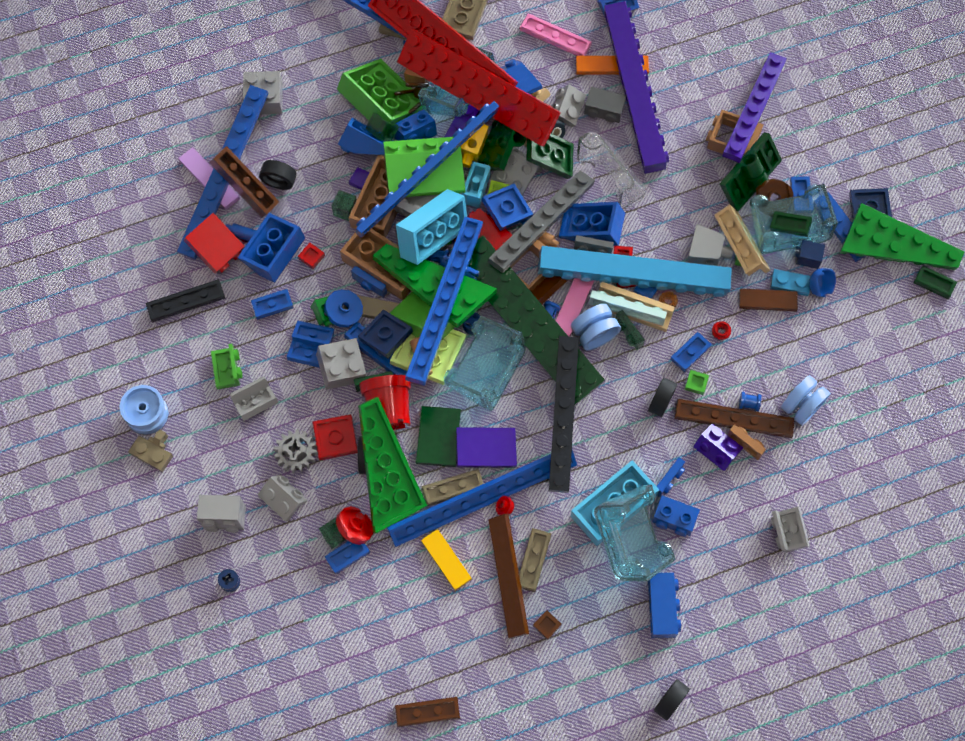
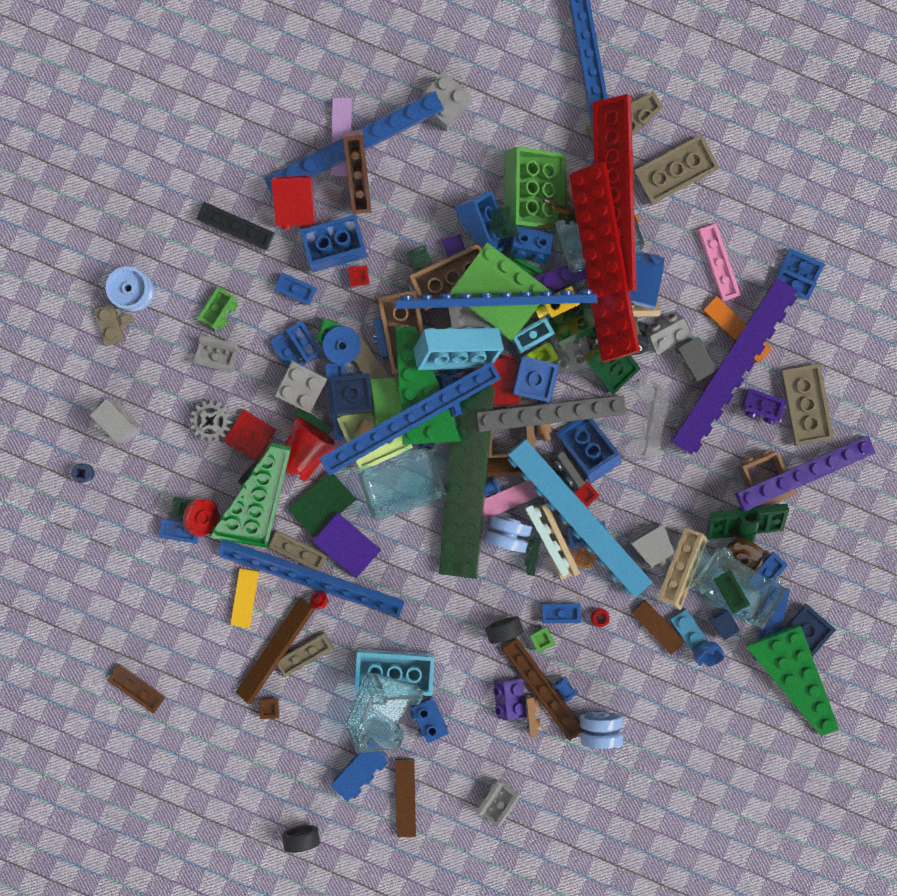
camera: 45 degrees right, 20 degrees up
(241, 232) = (325, 207): blue cylinder -> none
(277, 174) = (391, 186): black tyre -> none
(282, 496) = (173, 446): light grey bracket -> none
(563, 414) = (420, 577): black plate -> none
(676, 470) = (445, 690): blue plate -> none
(681, 94) = (763, 406): none -> dark purple bracket
(709, 68) = (807, 404): none -> dark tan plate
(719, 595) = (405, 797): none -> reddish brown tile
(935, 282) = (793, 729): dark green tile -> none

